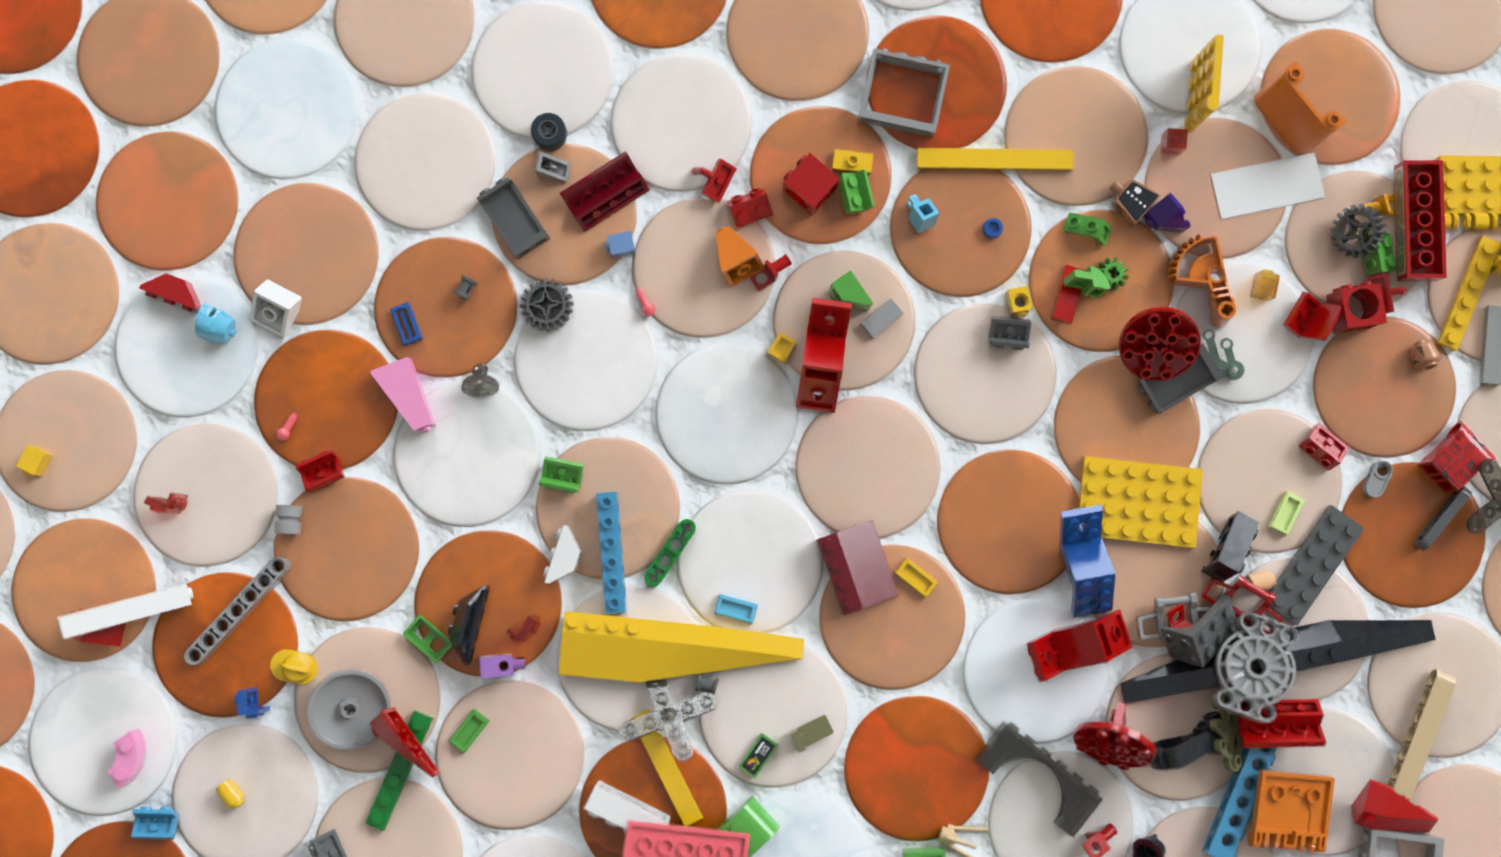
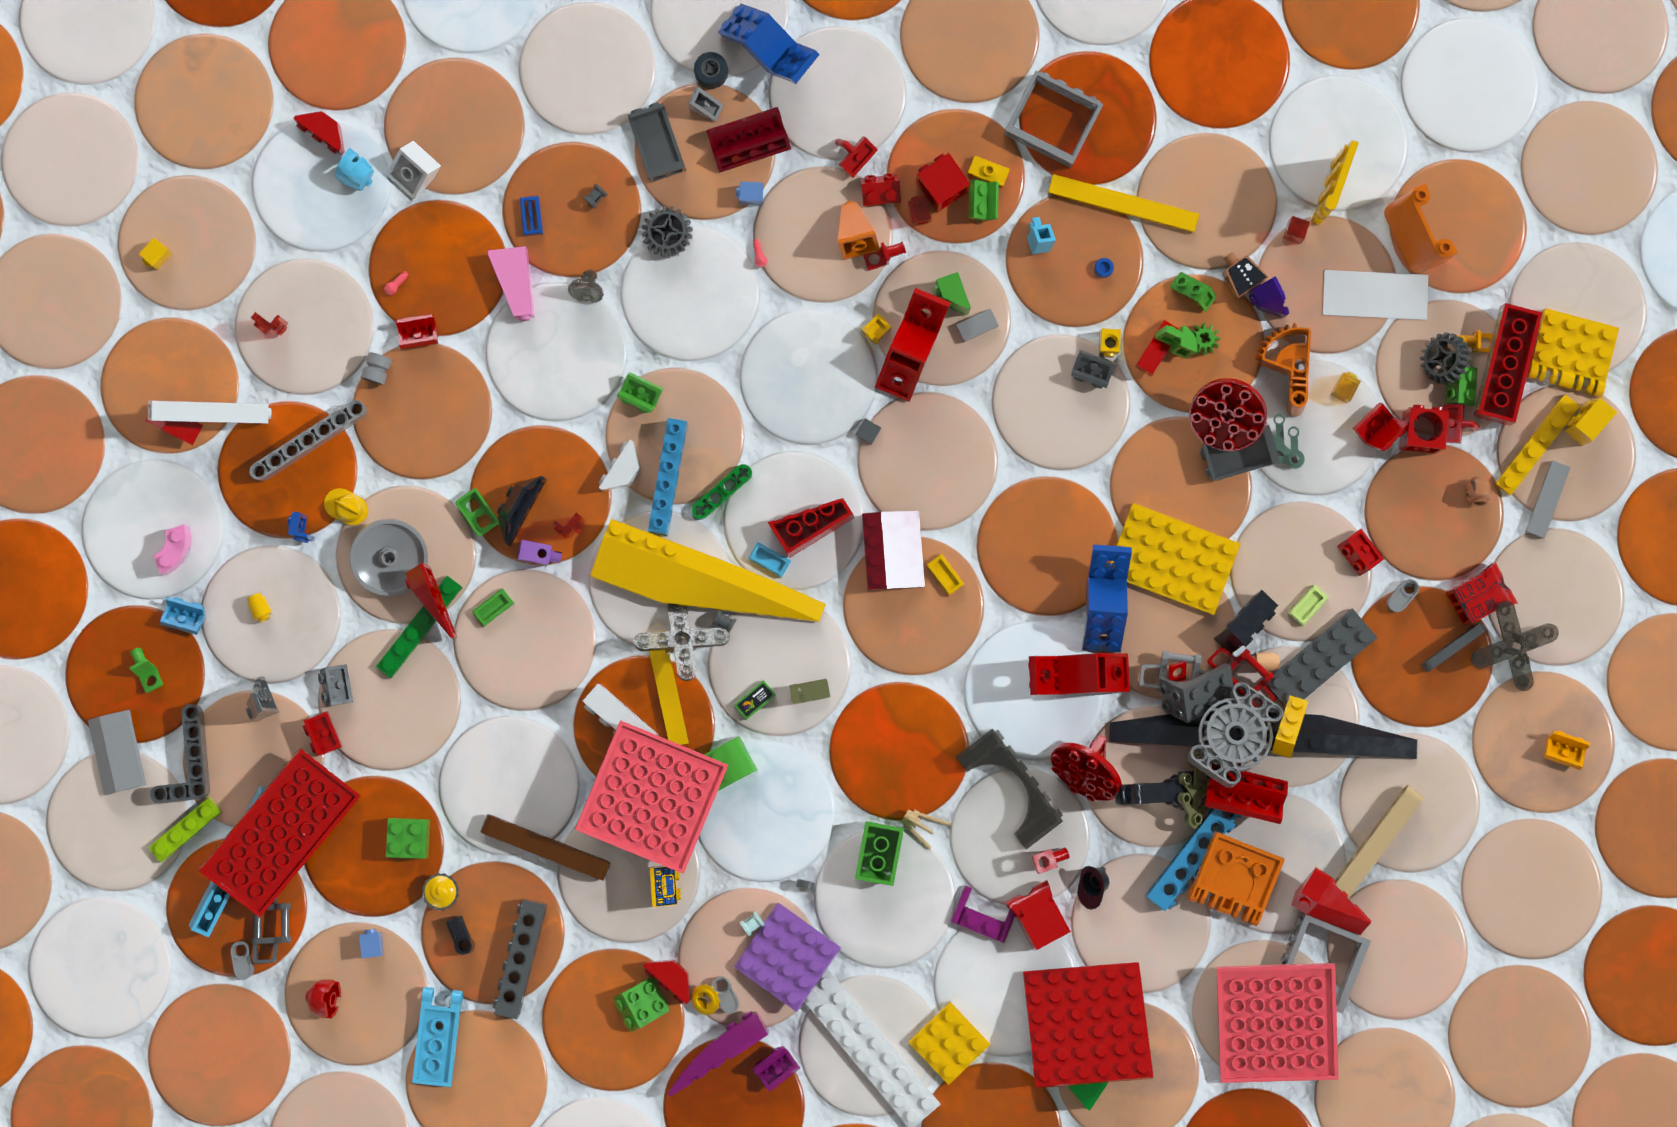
camera: 15 degrees right, 0 degrees up
(599, 89) = (768, 43): none -> blue bracket
(766, 566) = (809, 526): none -> red wedge
(794, 218) = (919, 211): none -> clear red brick
(801, 453) = (868, 431): none -> dark grey tile
(1308, 645) = (1290, 726): none -> yellow brick

